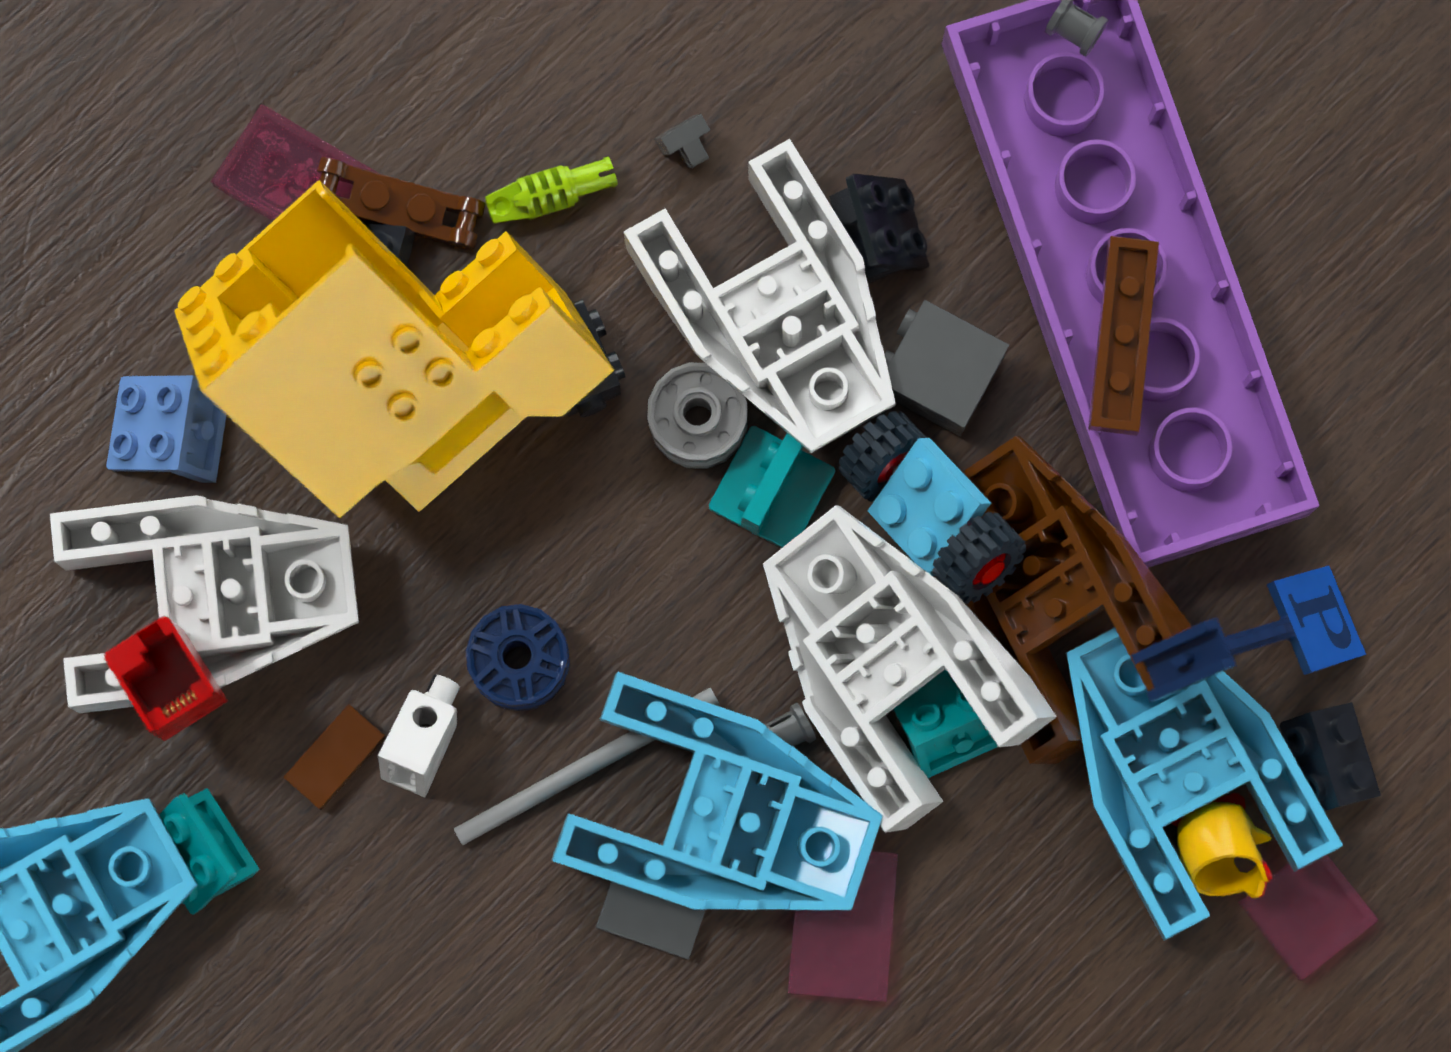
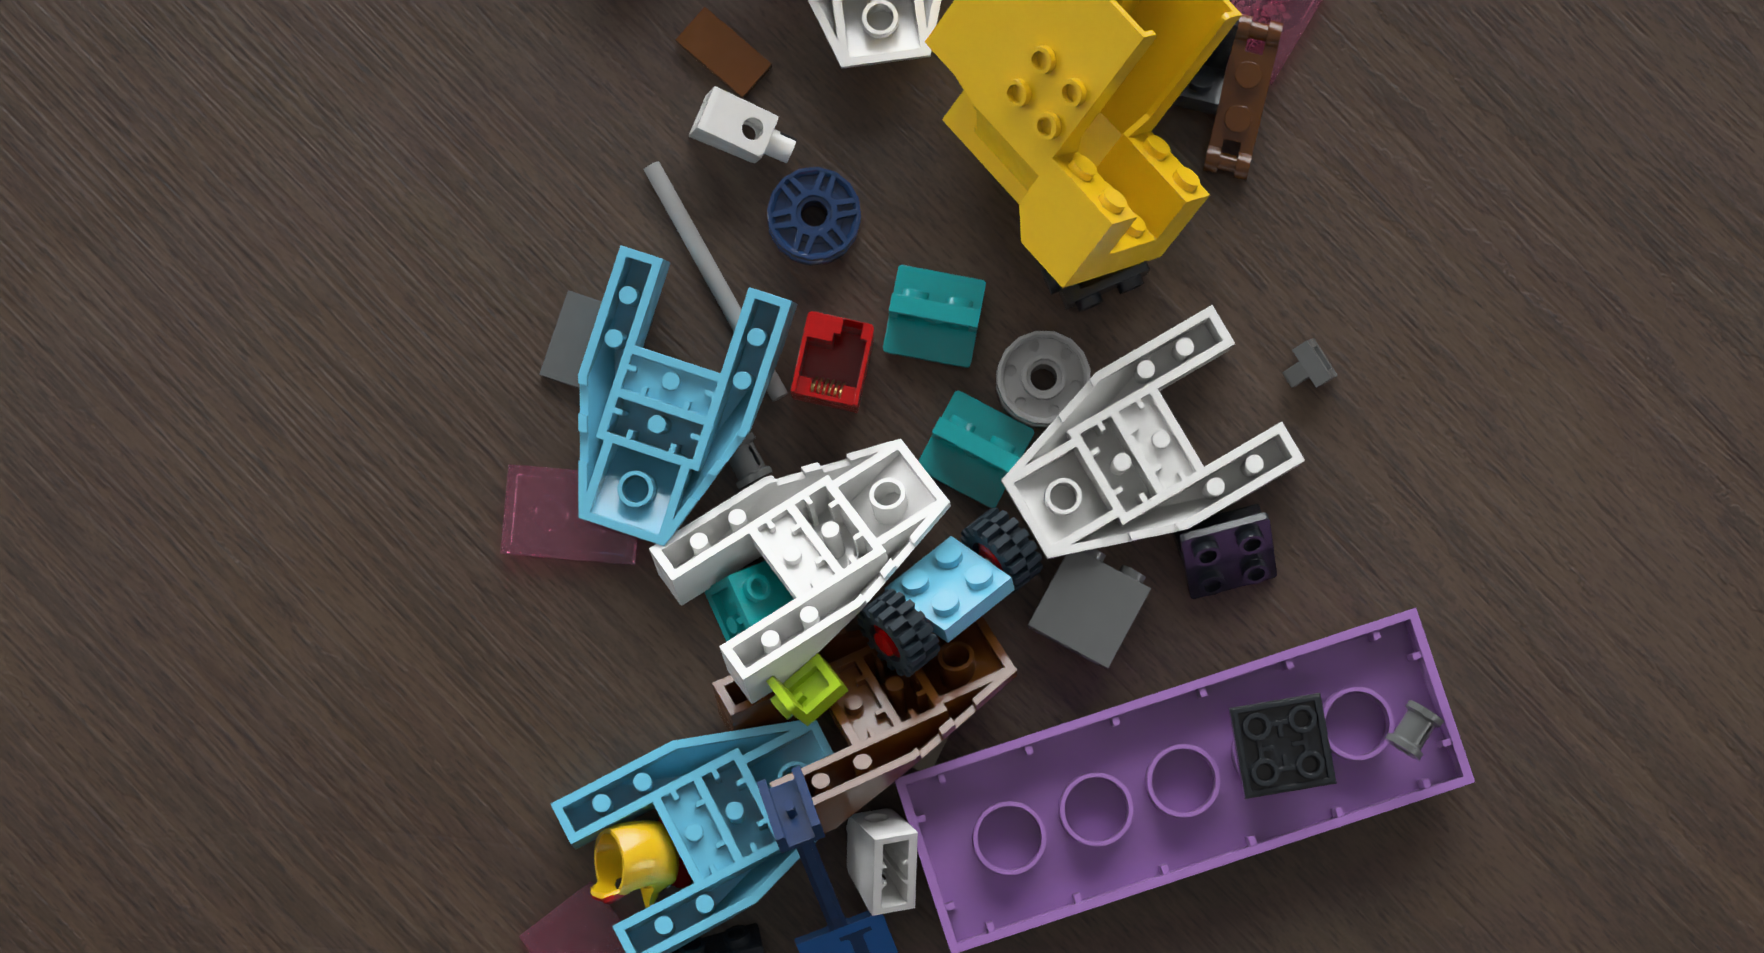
camera: 95 degrees right, 5 degrees up
(548, 191) = (1258, 238): lime hinge -> none
(628, 530) = (934, 316): none -> teal bracket
(679, 633) = (833, 361): none -> red piece
(1043, 654) = (807, 691): none -> lime bracket
(1093, 161) = (1282, 745): none -> black tile
(1123, 336) = (1110, 770): reddish brown plate -> none
(1219, 579) = (884, 845): none -> white torso

